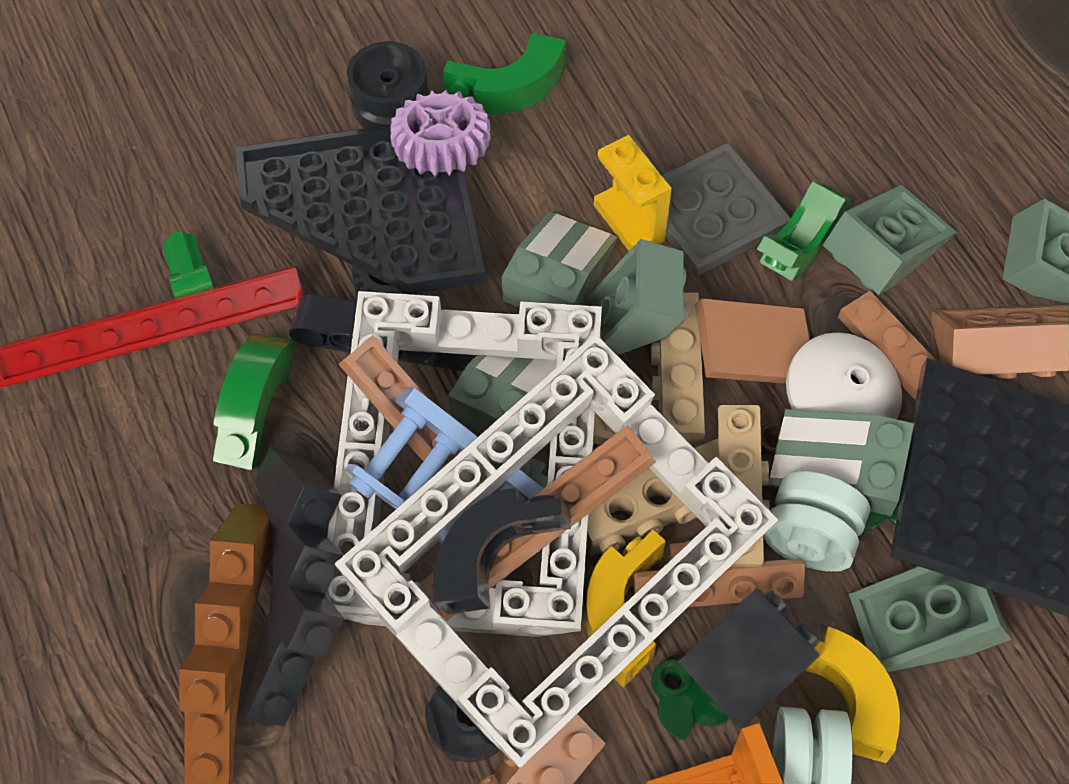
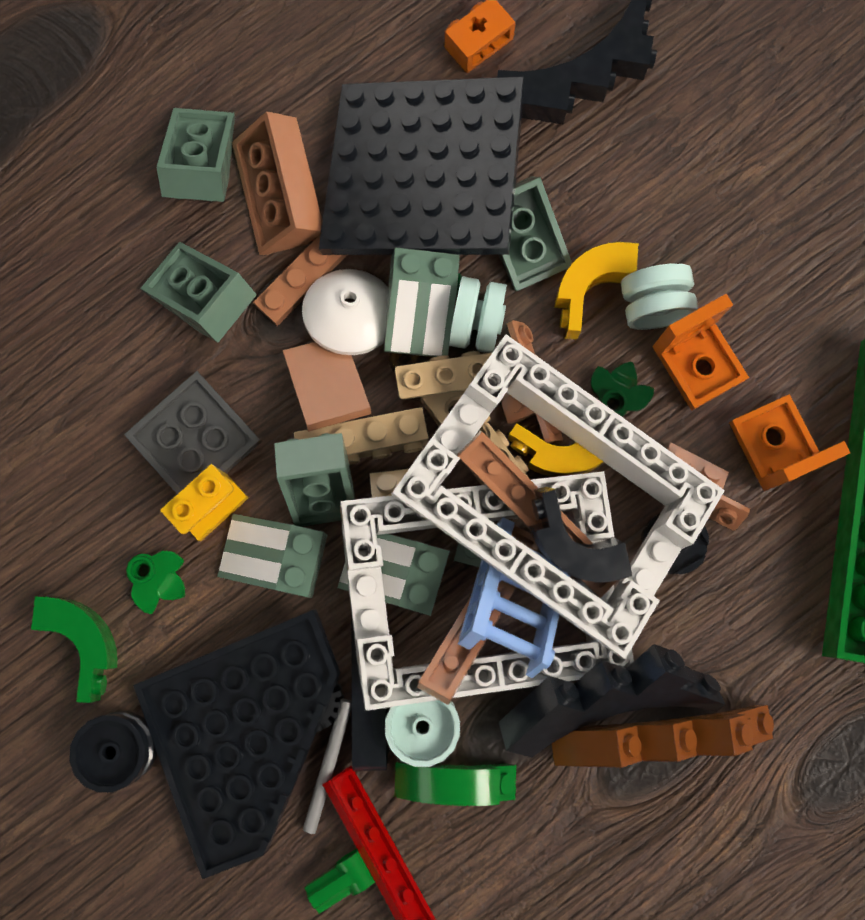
camera: 100 degrees left, 20 degrees up
(305, 275) = (327, 766): none -> light grey bar
(312, 372) = (423, 748): none -> light aqua wheel
(440, 132) = (148, 703): lavender gear -> none
(557, 156) = (160, 581): none -> green plate
(751, 656) = (598, 346): black brick -> none
(803, 236) = (209, 358): arch -> none

